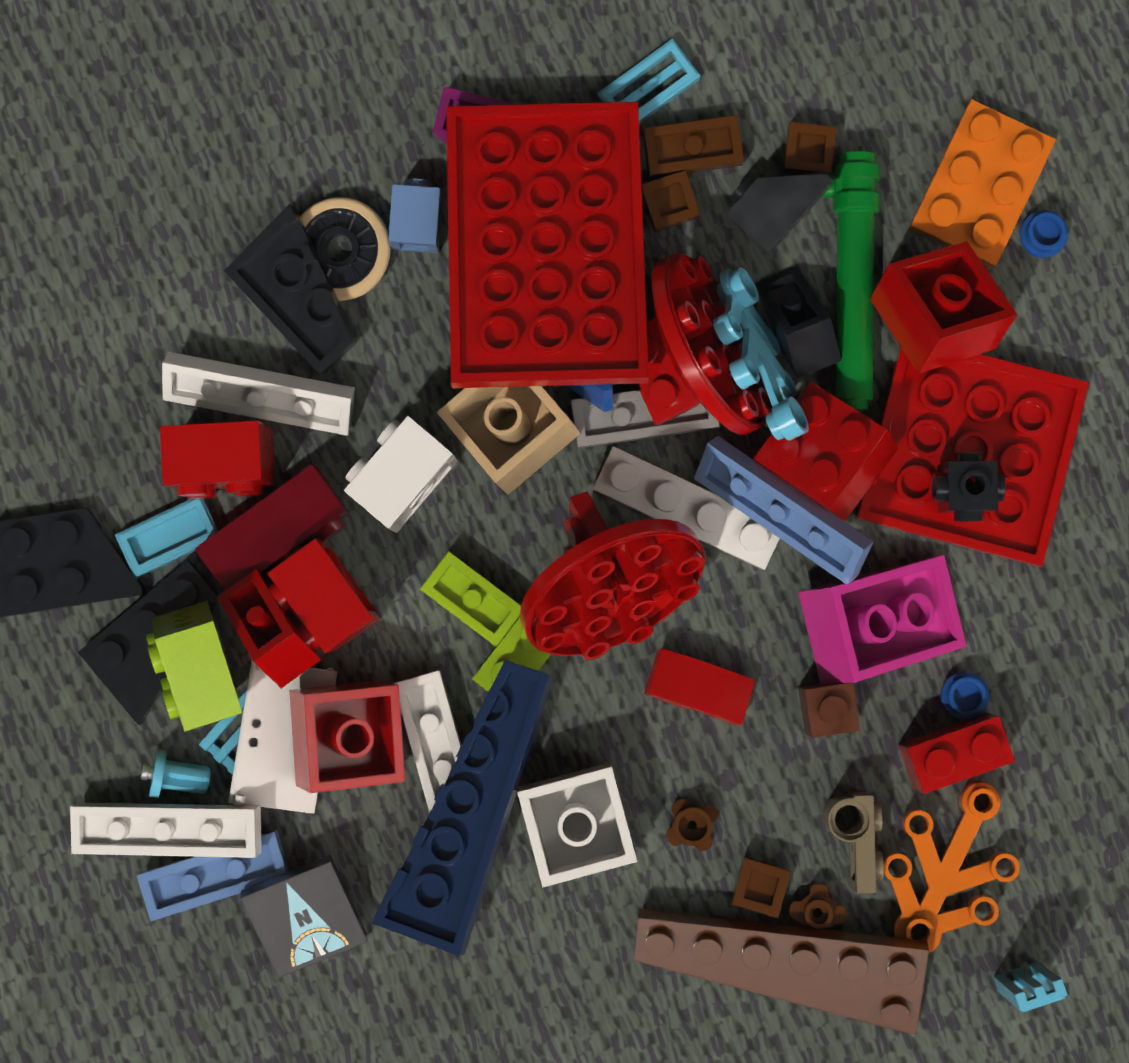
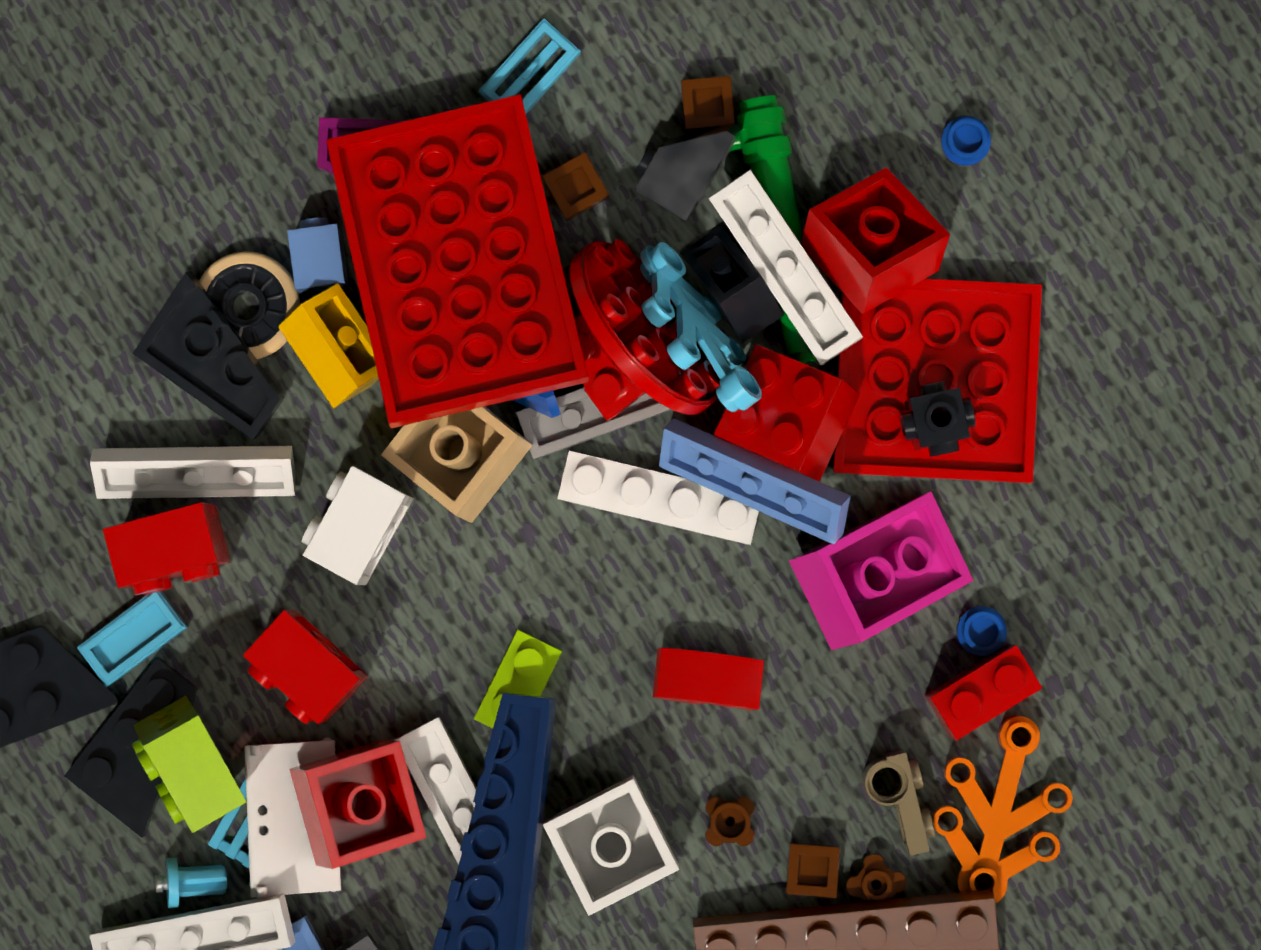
camera: 10 degrees left, 0 degrees up
(267, 629) = (254, 712): red brick -> none
(275, 528) = (239, 611): dark red brick -> none
(412, 300) = (332, 344): none -> yellow brick
(472, 598) = (457, 637): lime plate -> none
(610, 583) = (593, 593): red bracket -> none
(693, 146) = (588, 125): reddish brown plate -> none
(828, 709) = (844, 674): copper brick -> none
(854, 315) = (786, 267): none -> white plate
(982, 182) = (892, 101): orange plate -> none
(1035, 983) = (1118, 902): medium azure tile -> none

